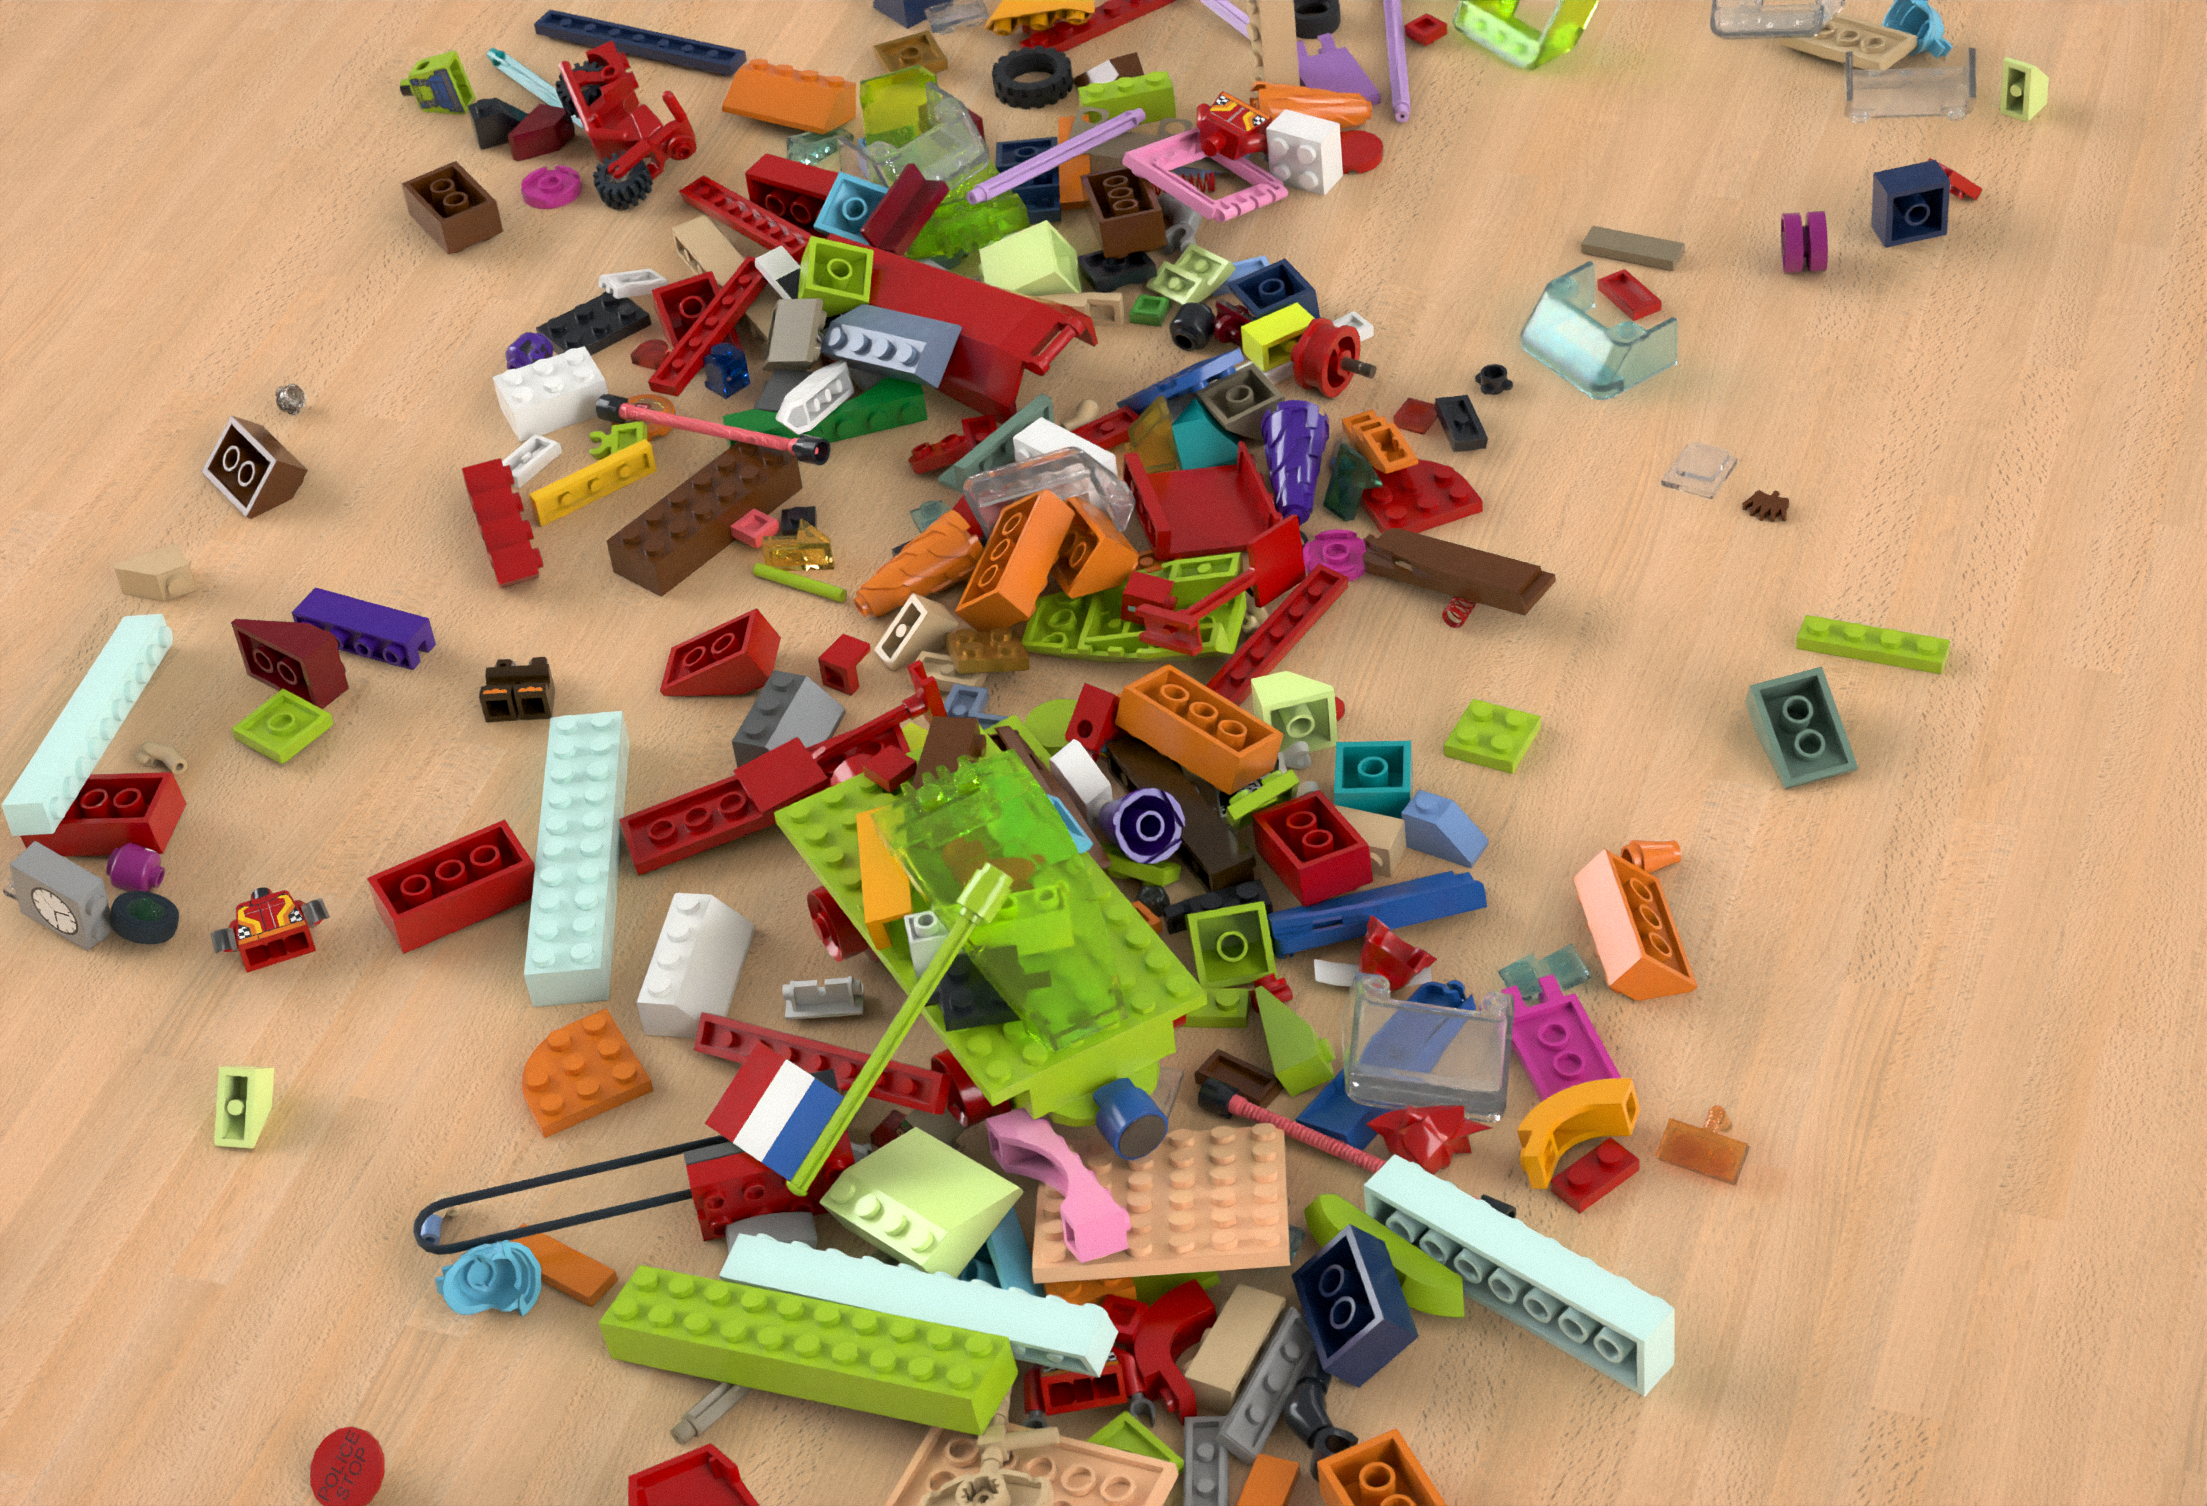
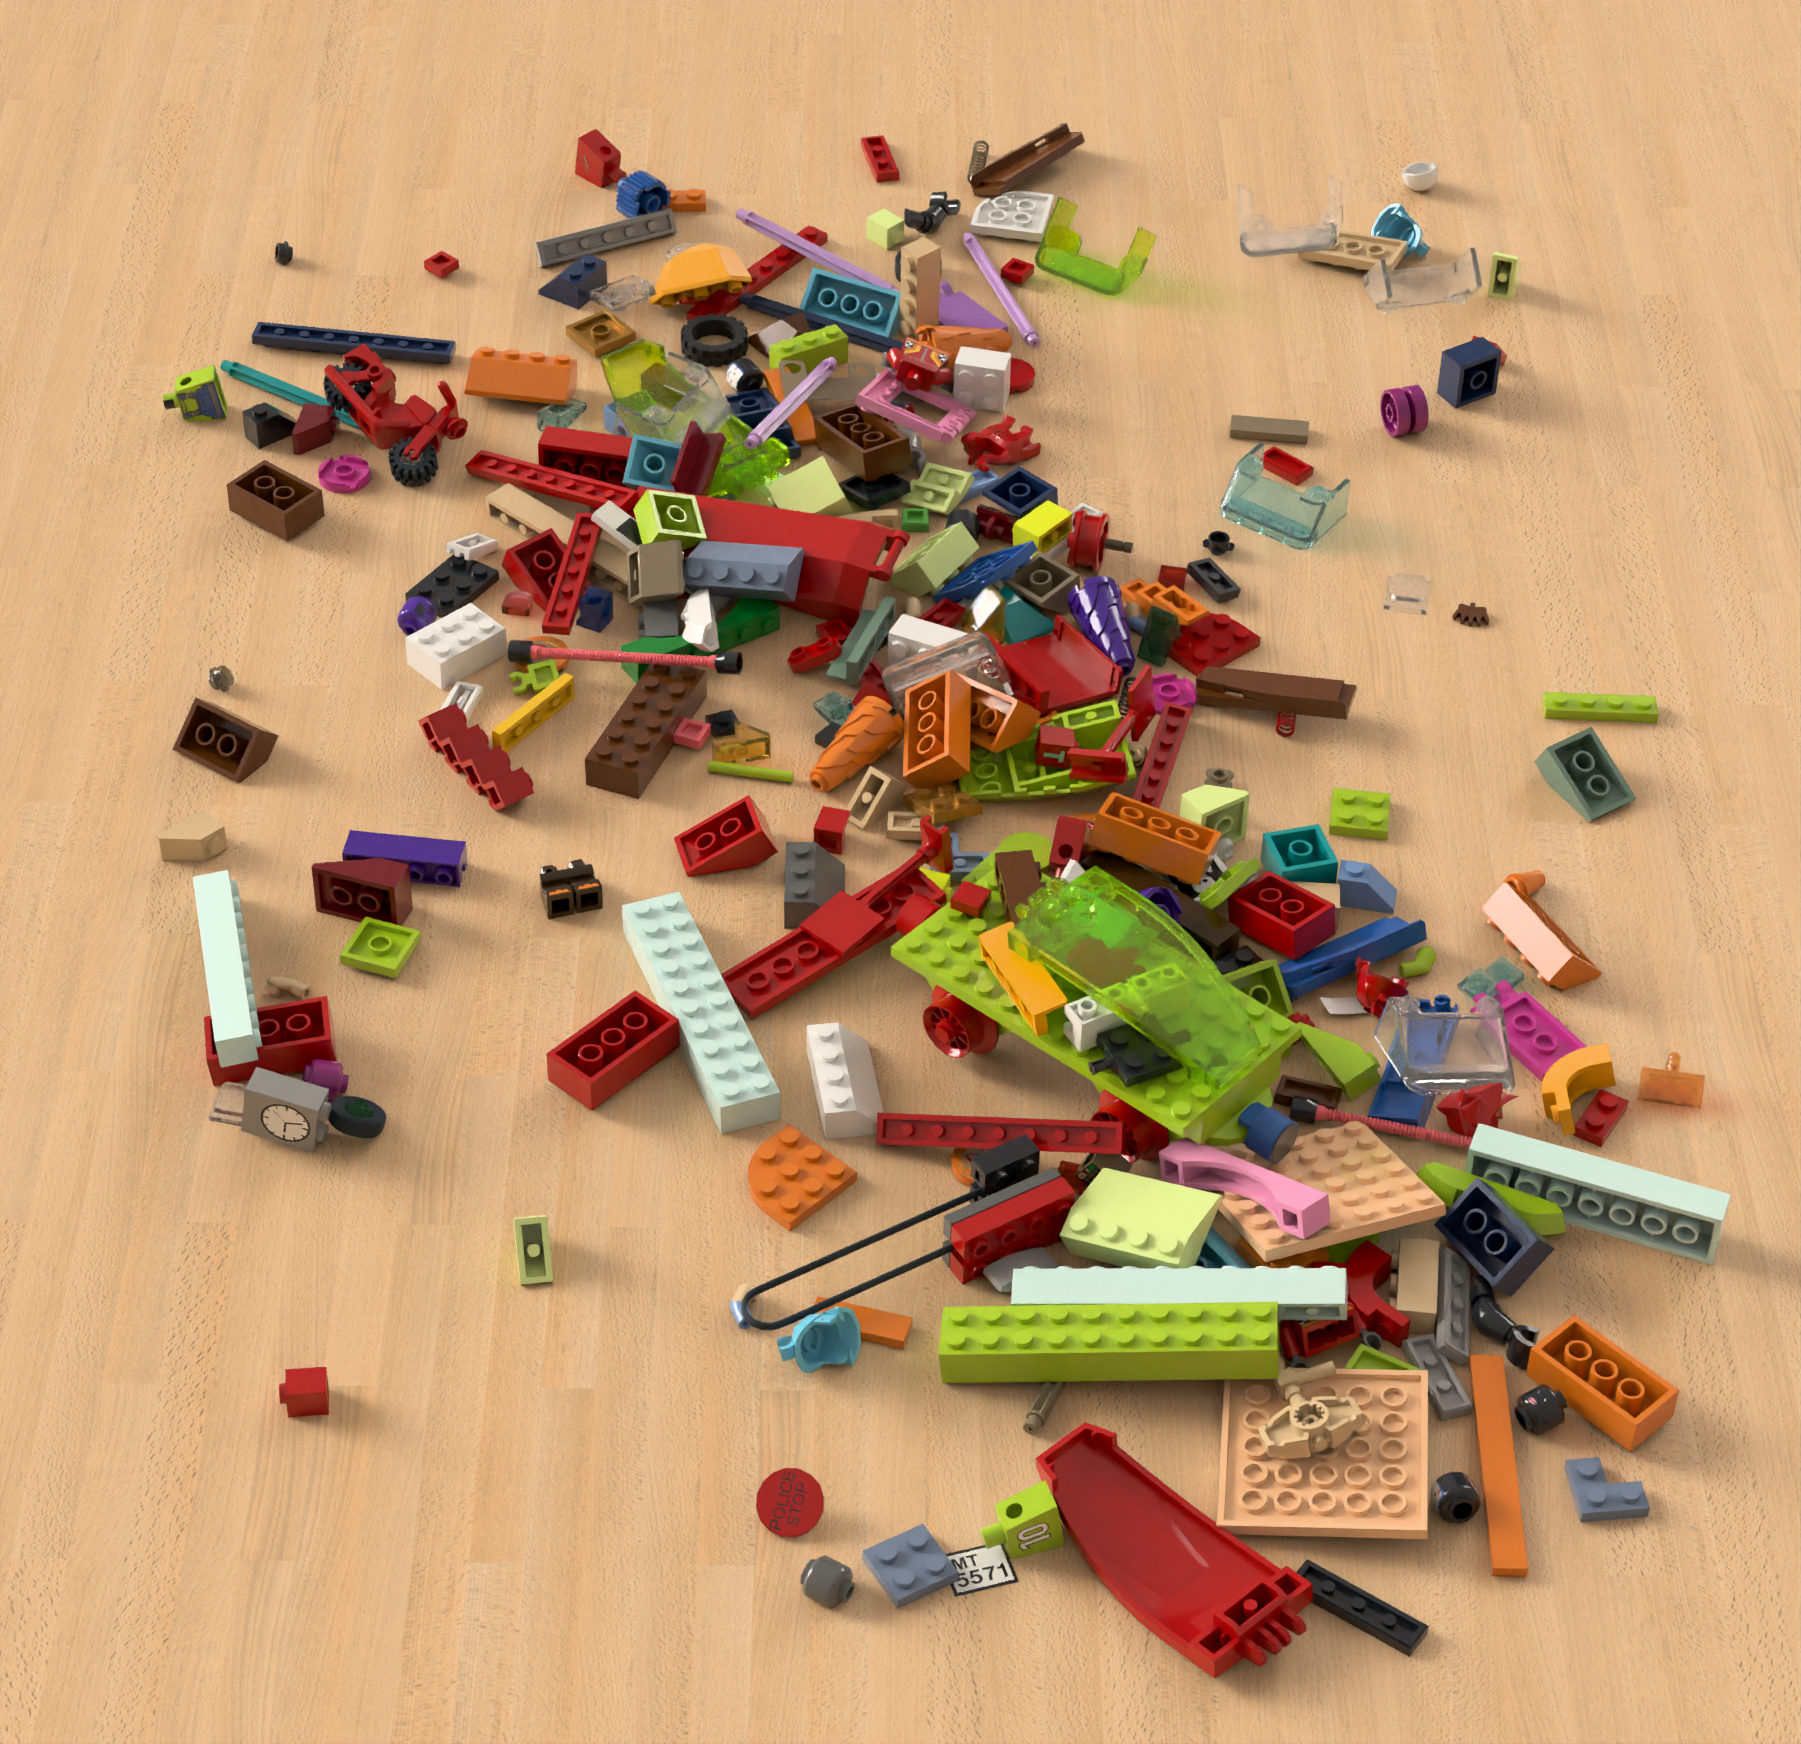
camera: 25 degrees left, 0 degrees up
(270, 928) = (476, 1106): torso -> none
(796, 1119) = (1033, 1174): flag -> none
(837, 998) = (953, 1090): white hinge -> none
(1038, 120) = (744, 375): none -> black head
(1140, 361) = (935, 561): none -> yellowish green slope
(1152, 62) = (818, 322): none -> dark blue piece
(1204, 51) = (852, 302): none -> medium azure slope
(1296, 229) = (1003, 444): none -> red animal
(1338, 670) = (1219, 777): none -> dark tan plate
(1467, 937) = (1421, 965): none -> lime arm

